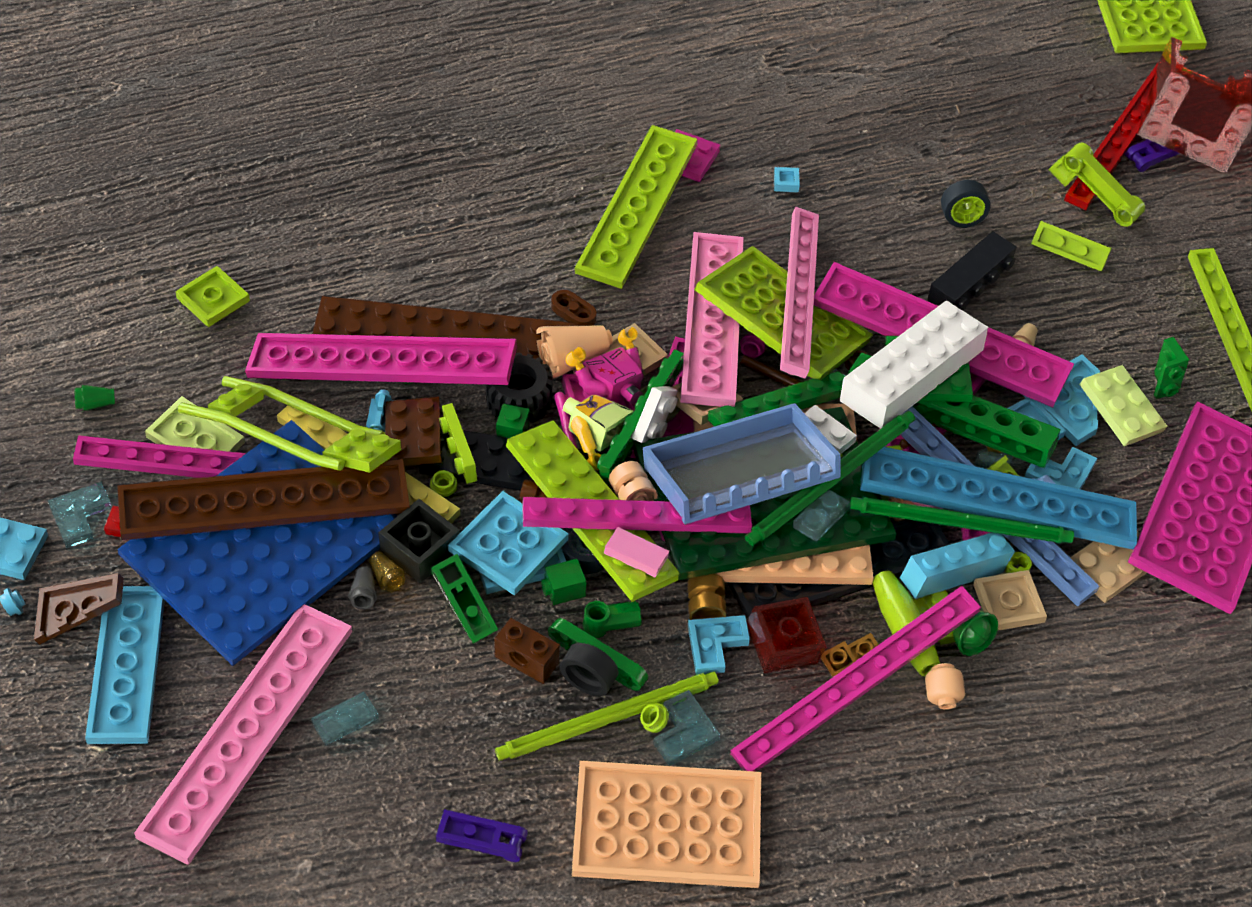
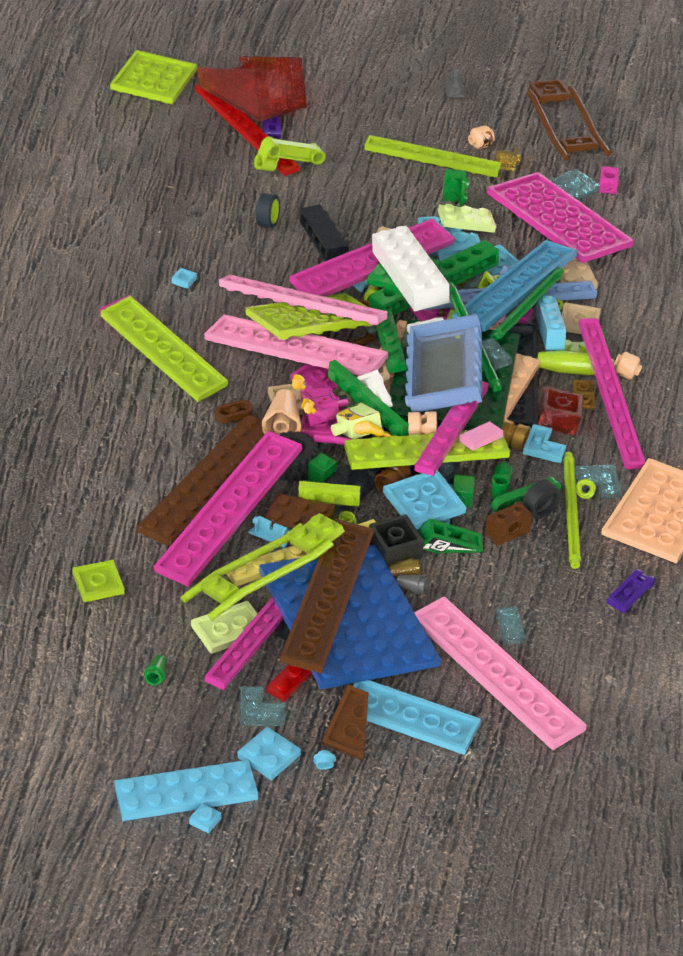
camera: 65 degrees left, 10 degrees down
(1071, 246) = (327, 187): lime plate -> none

